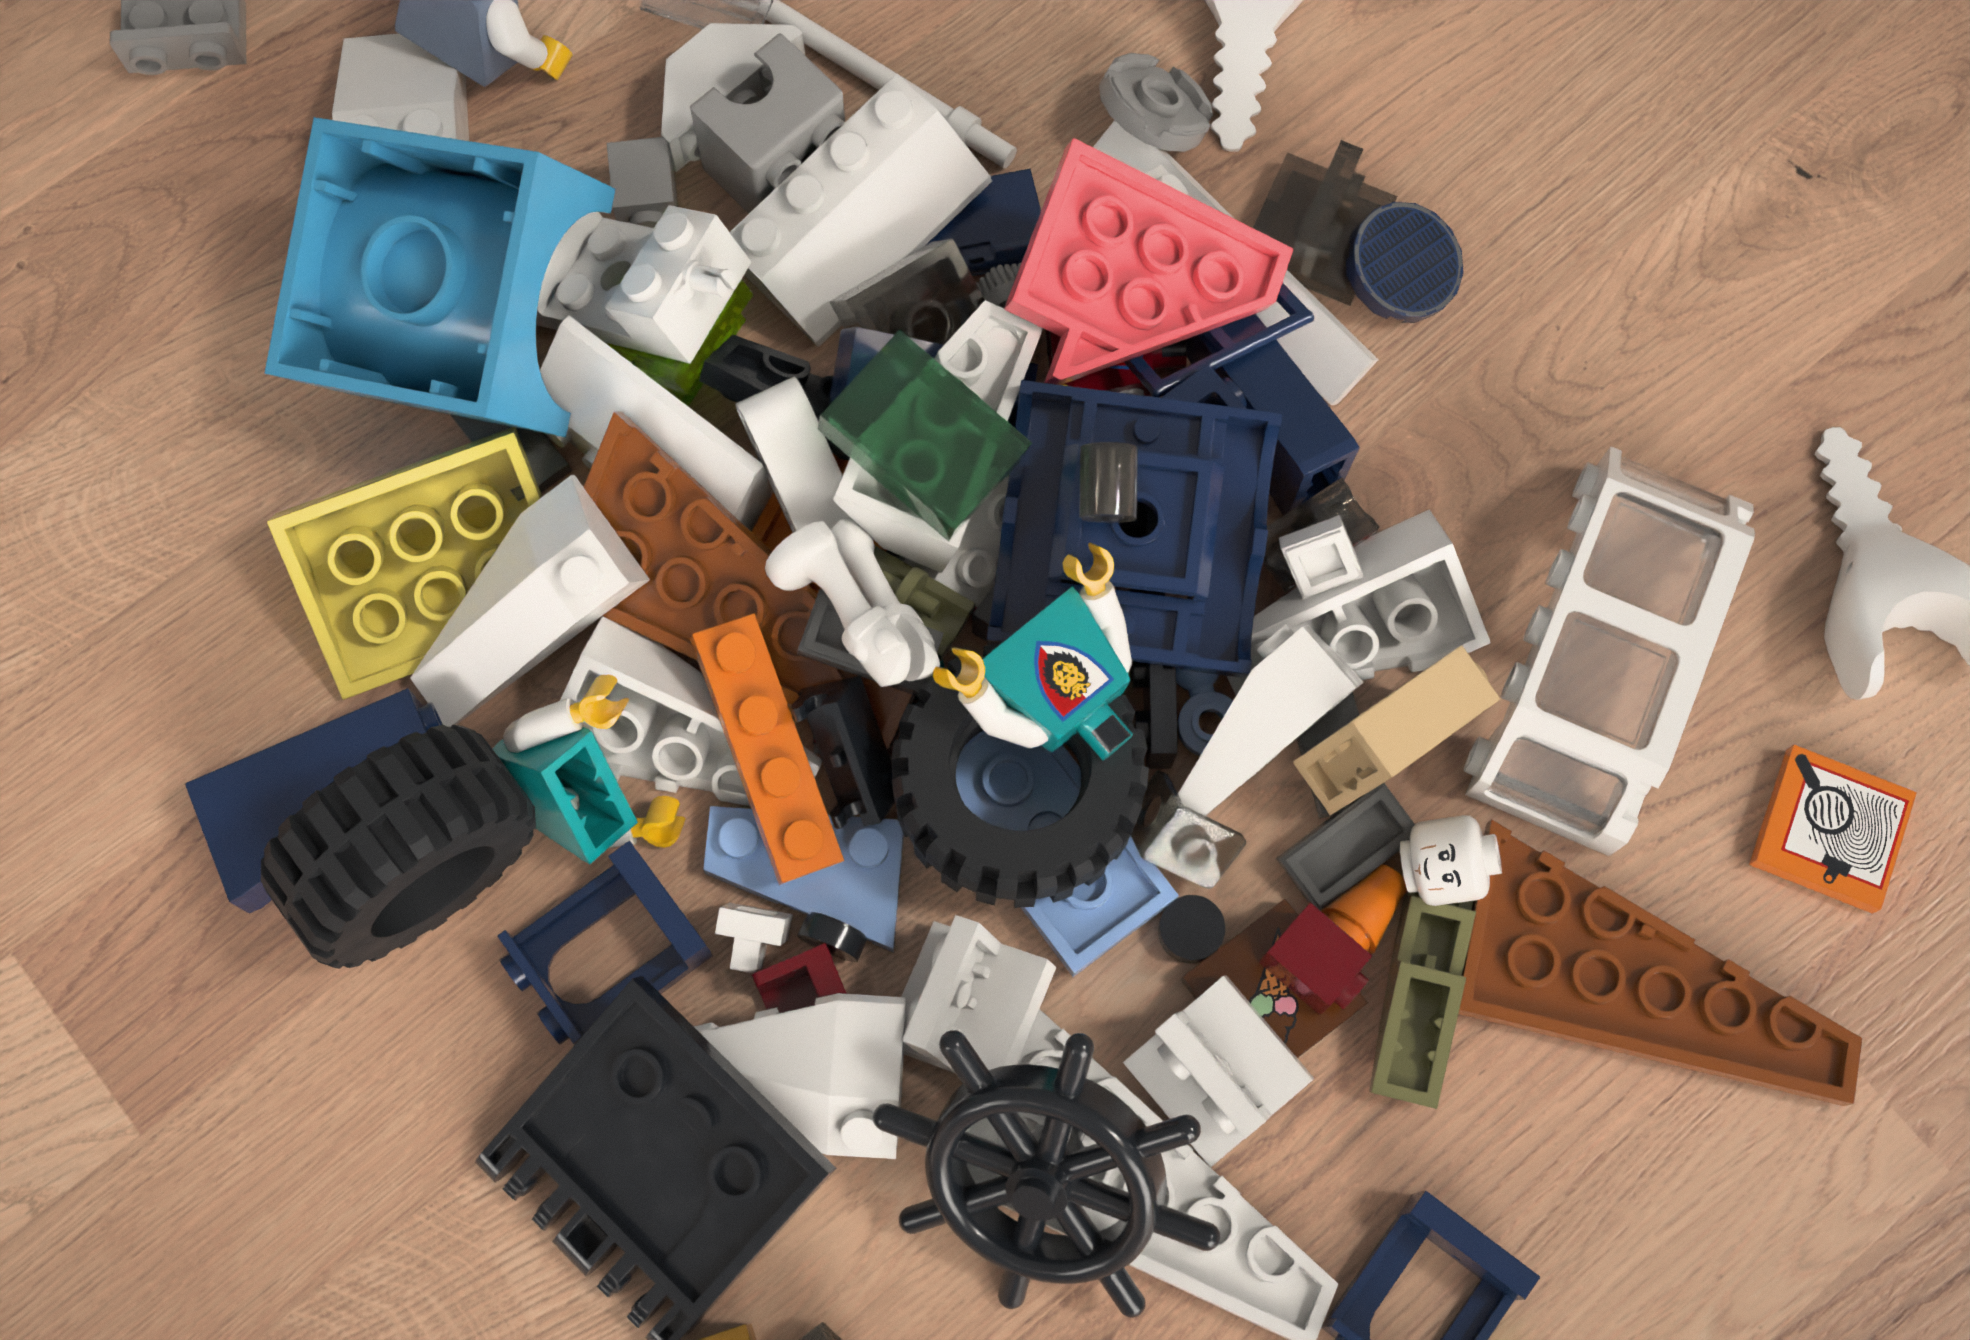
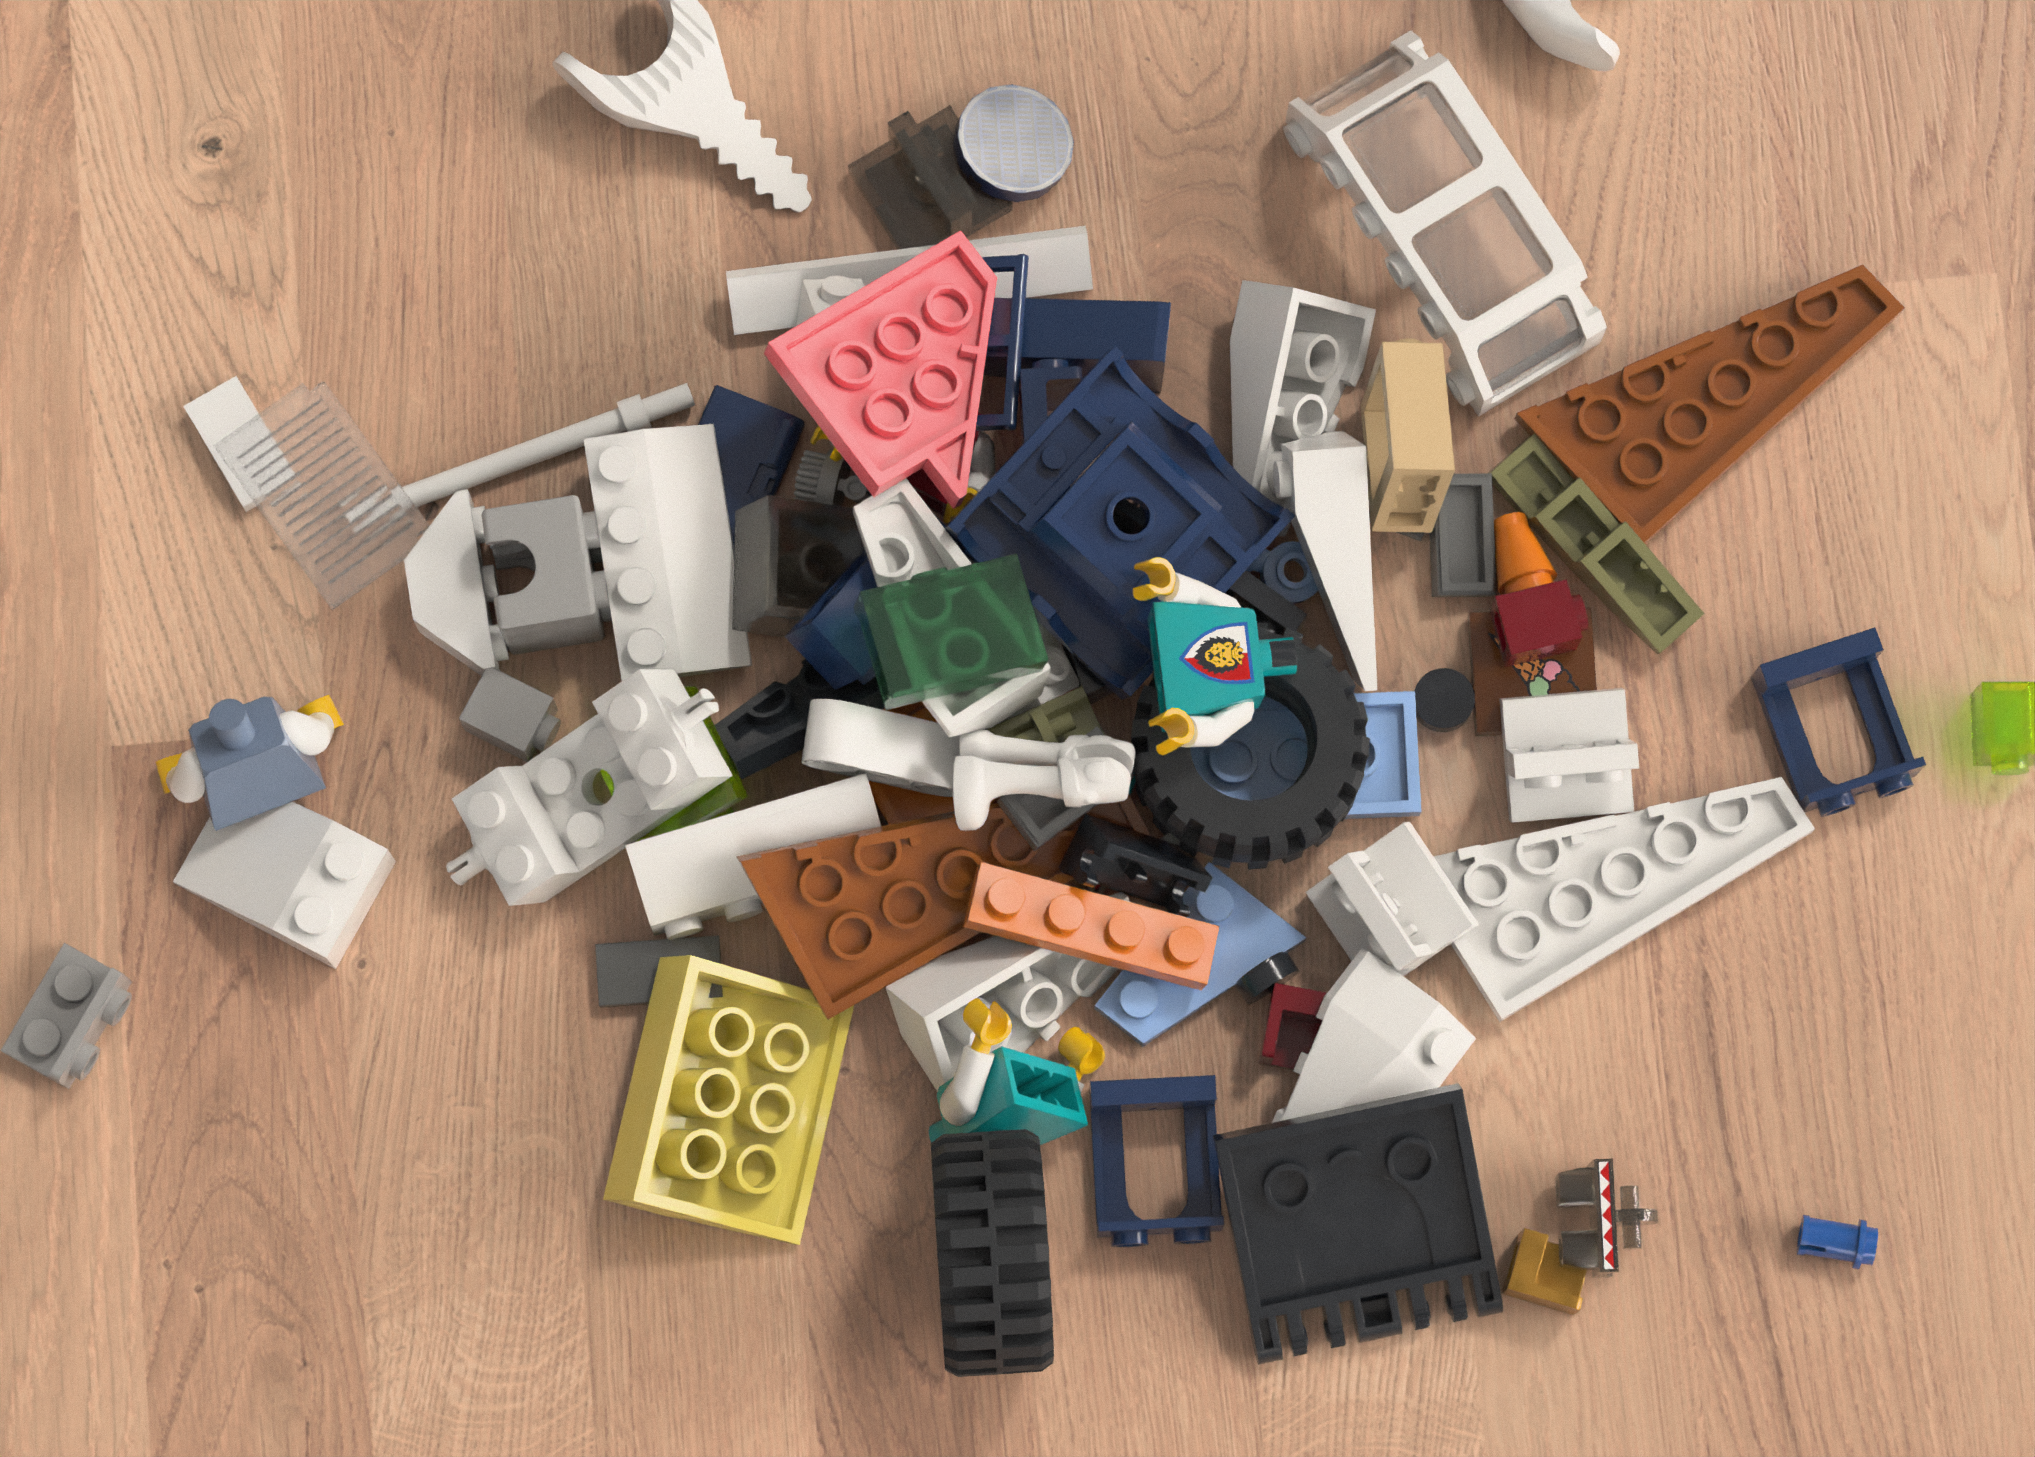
camera: 55 degrees left, 5 degrees up
(254, 796) = (869, 1321): dark blue slope -> none
(425, 271) = (523, 932): dark azure piece -> none
(534, 595) = (837, 1031): white wedge -> none
(752, 932) = (1221, 1036): white tile -> none
(1046, 1173) = (1570, 929): black piece -> none
(1108, 482) = (1097, 518): clear smoke piece -> none
(1155, 104) = (732, 241): light grey tile -> none
(1183, 838) = (1381, 655): clear smoke bracket -> none
(1321, 557) = (1230, 393): white tile -> none
(1328, 503) = (1200, 377): clear smoke hips -> none
(1449, 860) = (1530, 469): white head -> none
(1833, 829) = (1694, 161): tile -> none

